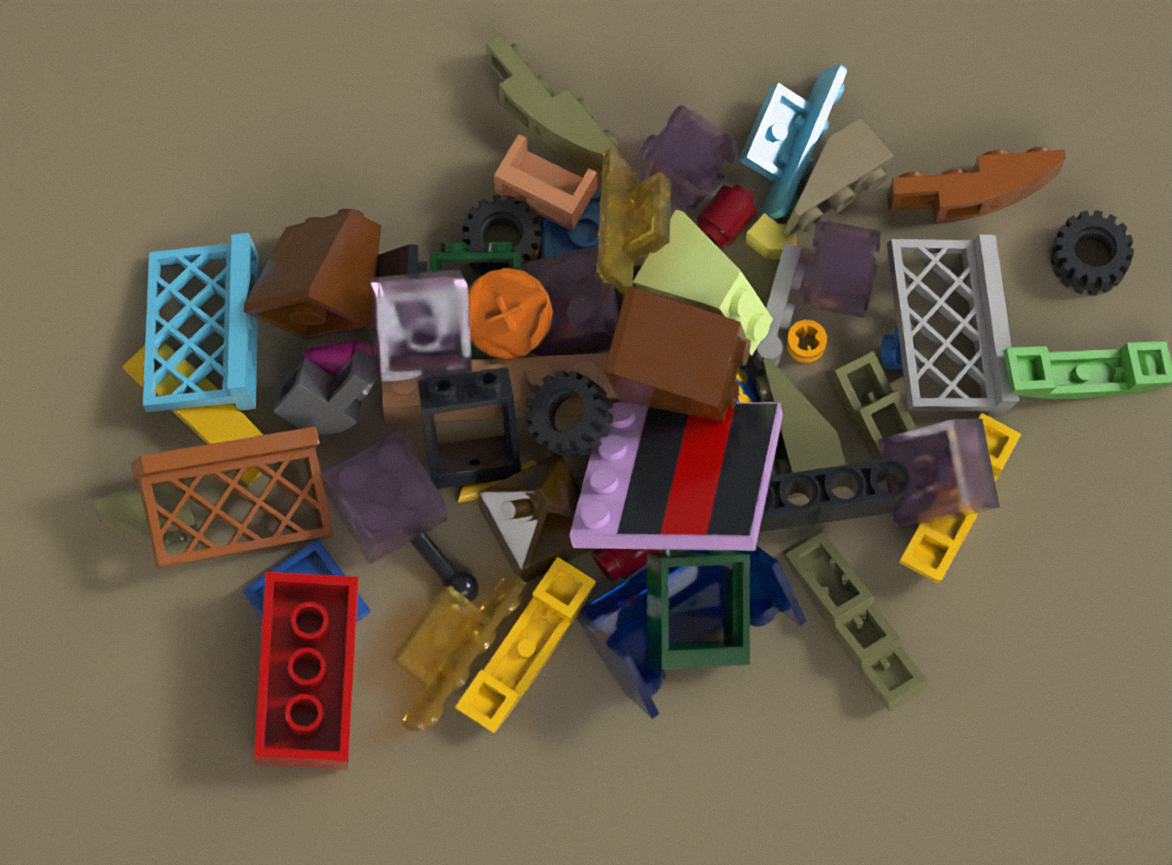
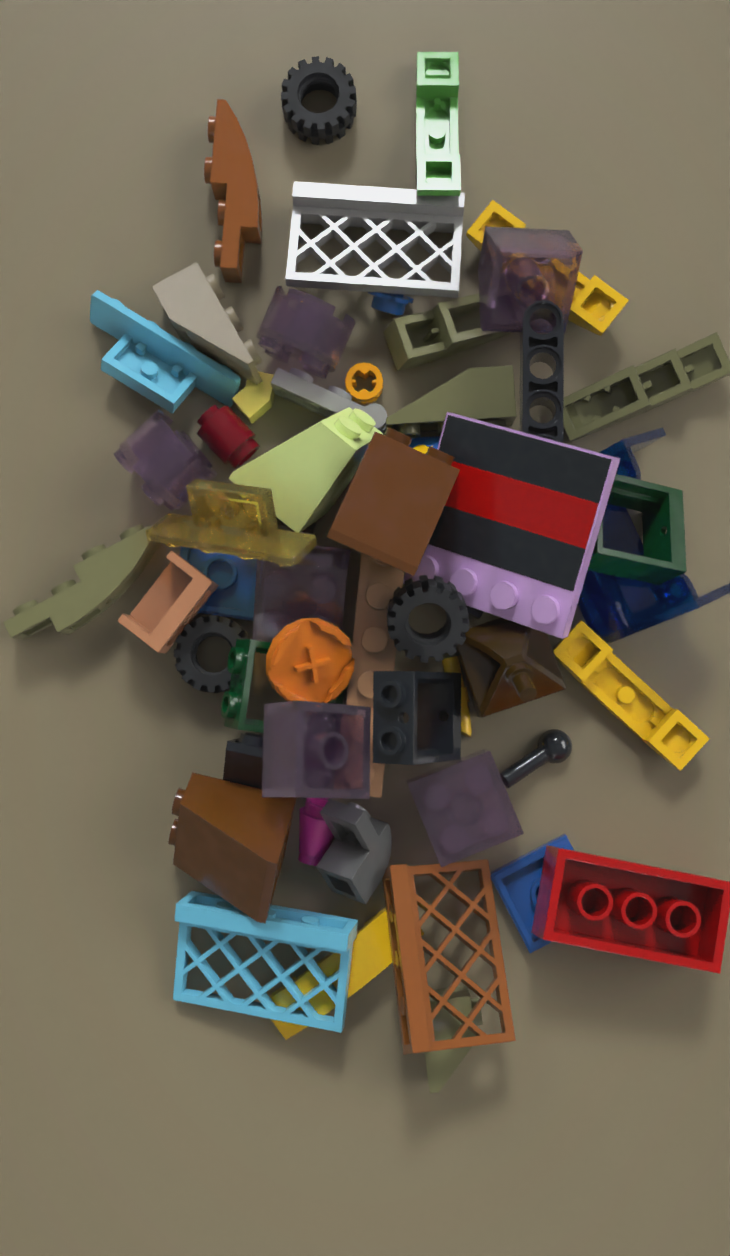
camera: 70 degrees left, 15 degrees up
(448, 642) = (615, 765): clear yellow bracket -> none

